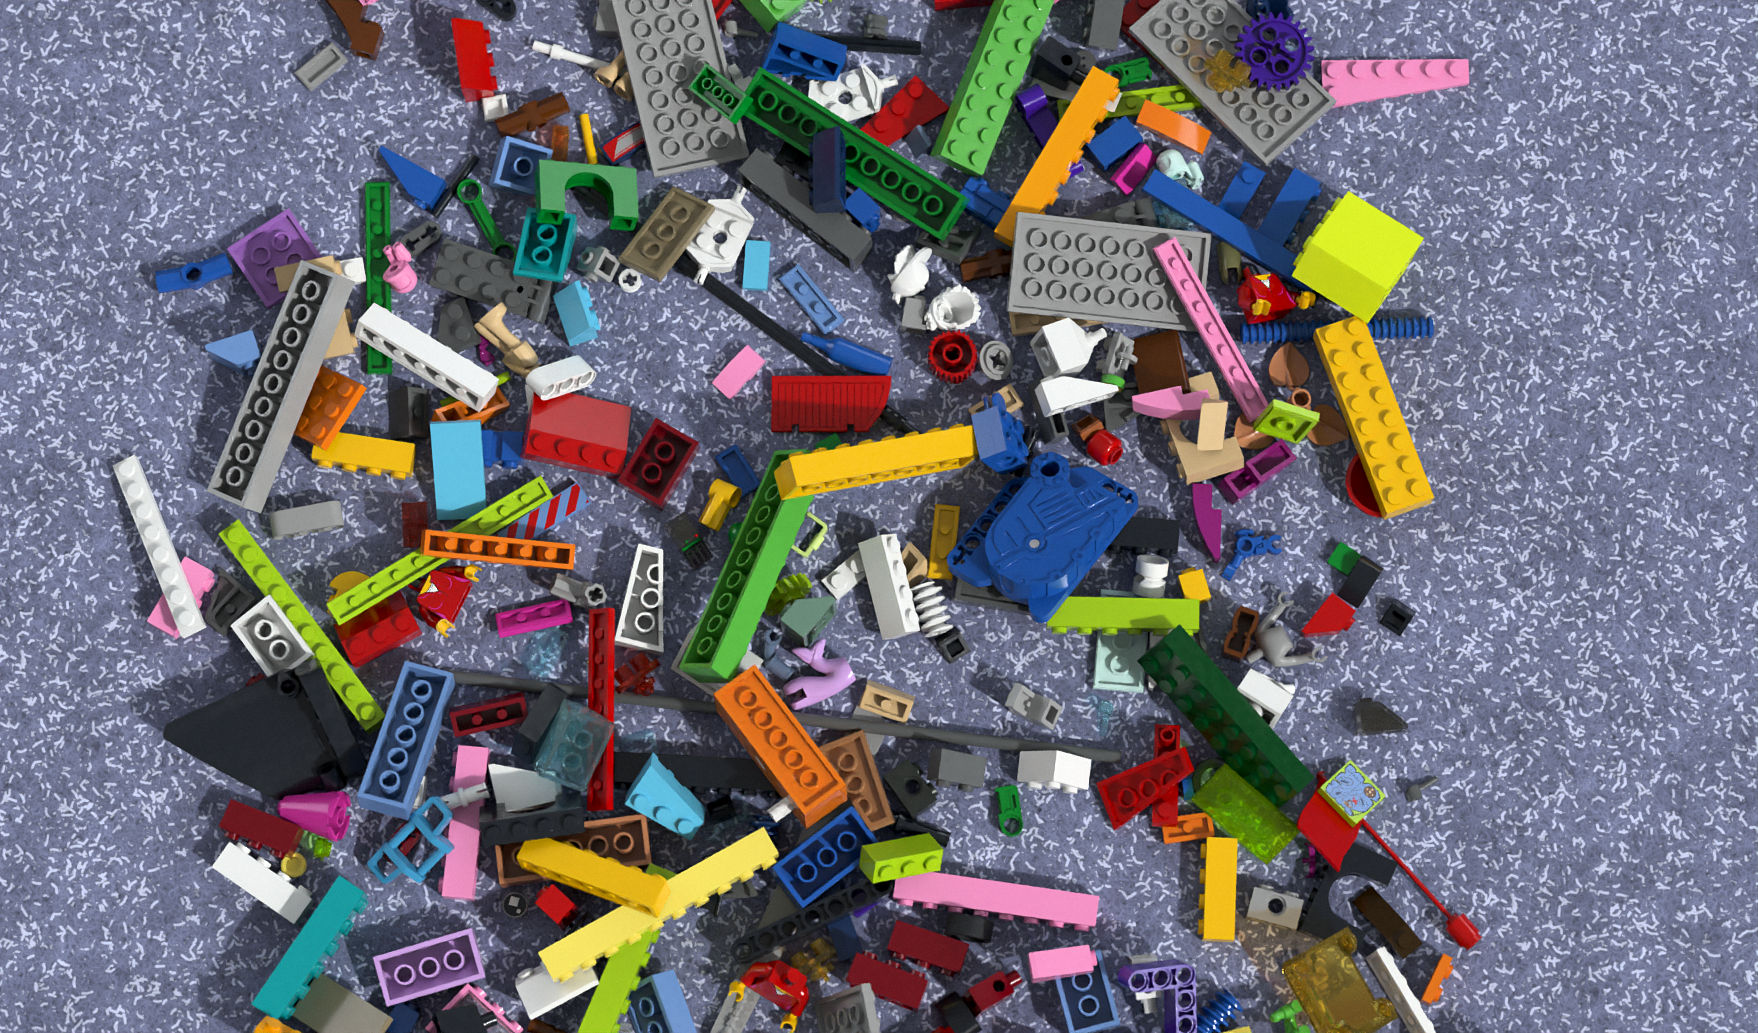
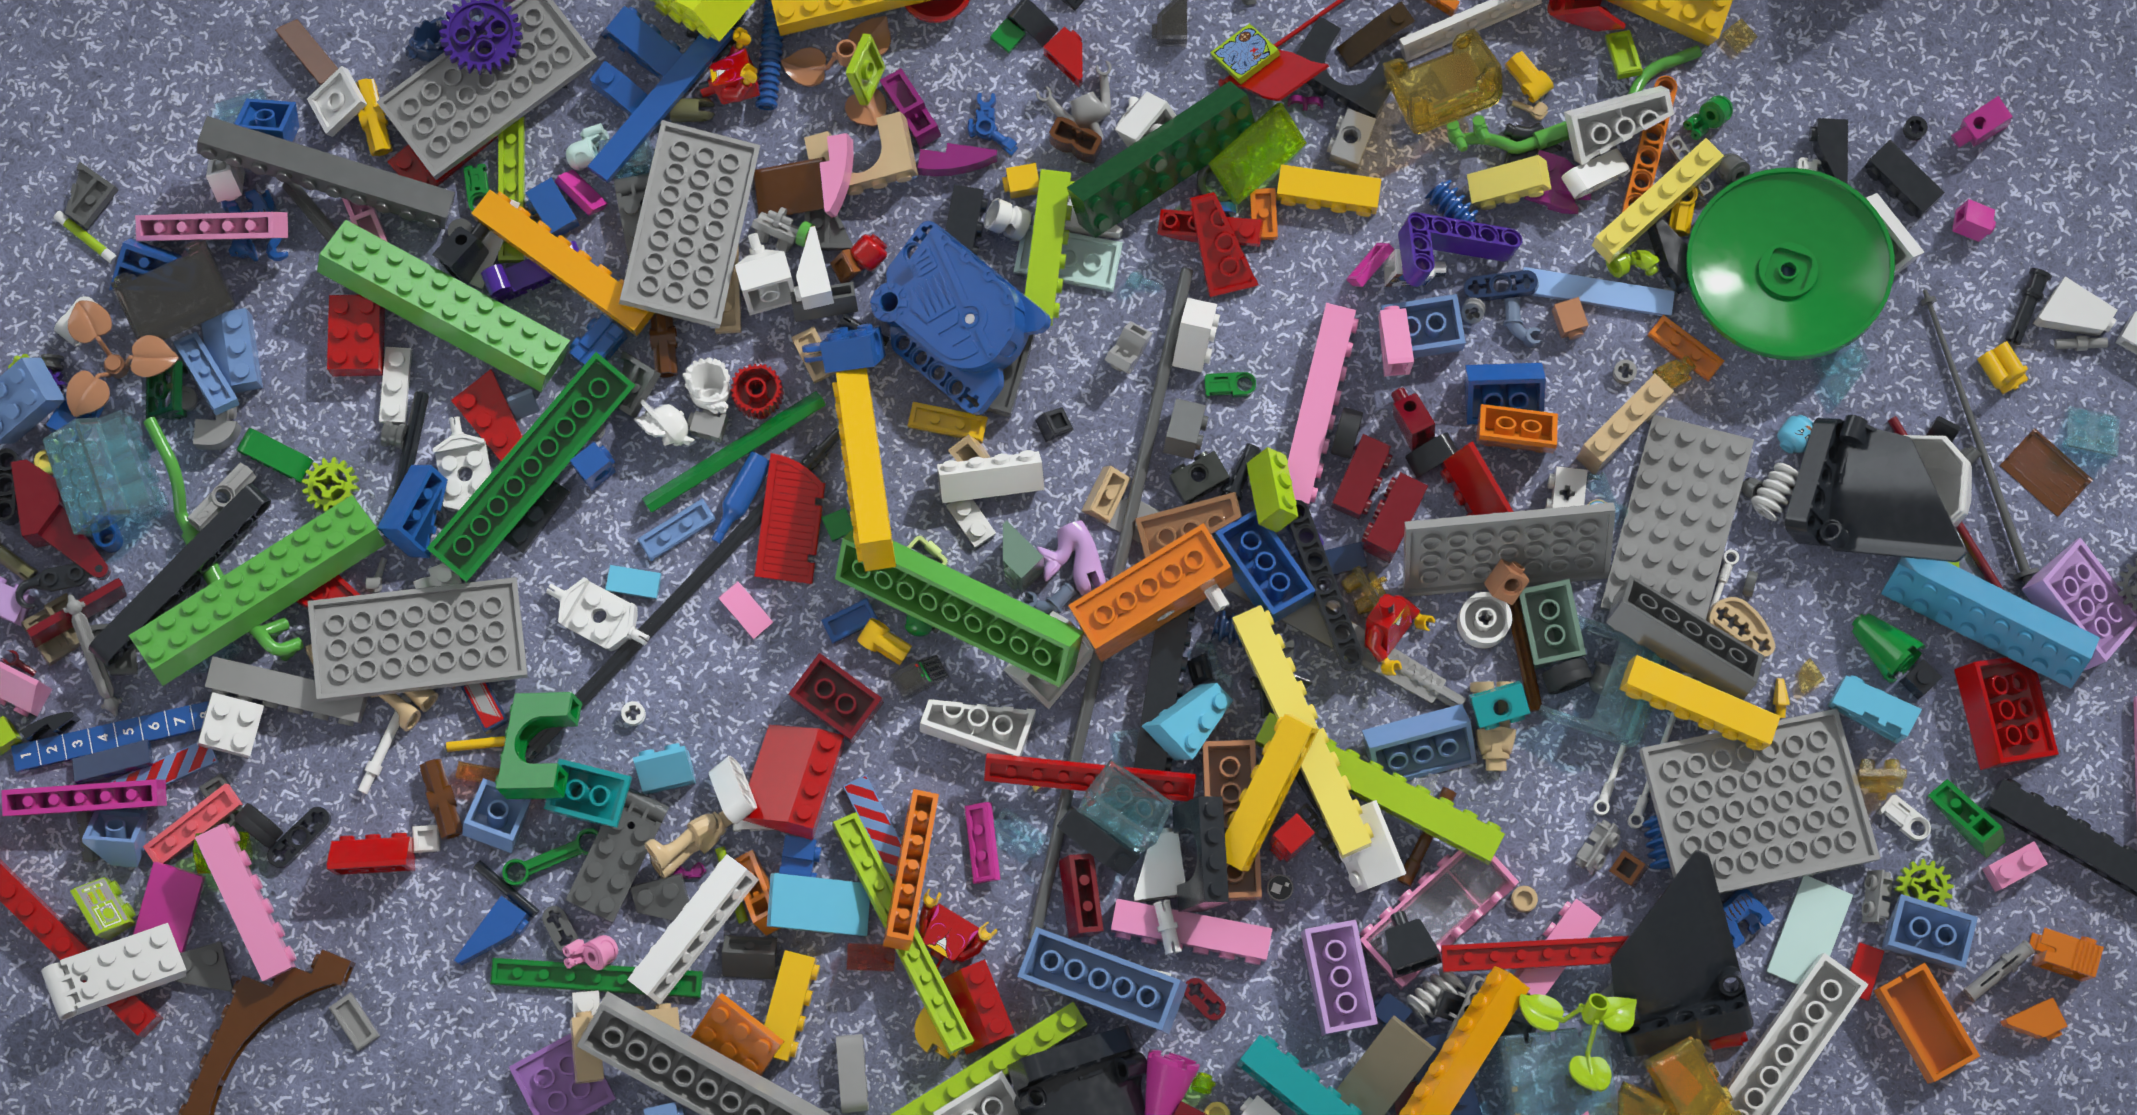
camera: 85 degrees left, 0 degrees up
(433, 835) = (1187, 975): dark azure bar -> none
(579, 593) = (962, 792): light grey piece -> none
(598, 264) = (613, 742): light grey brick -> none
(642, 683) = (1059, 737): clear red hips -> none
(666, 234) = (590, 668): dark tan tile -> none
(721, 93) = (449, 593): green piece -> none
(787, 591) = (987, 573): lime gear -> none
(791, 200) = (583, 521): dark grey brick -> none
(828, 171) = (551, 485): dark blue slope -> none
(892, 343) = (734, 451): none -> green tile
(925, 23) = (395, 385): none -> white plate
(930, 609) = (1017, 438): white piece -> none
(1003, 357) = (762, 343): light grey gear -> none
(1146, 938) = (1370, 264): none -> dark pink tile
(1173, 127) = (542, 149): orange slope -> none
(1211, 328) = (760, 131): bright pink tile -> none
(1212, 424) = (864, 135): tan slope -> none
(1225, 75) = (503, 70): clear yellow hips -> none

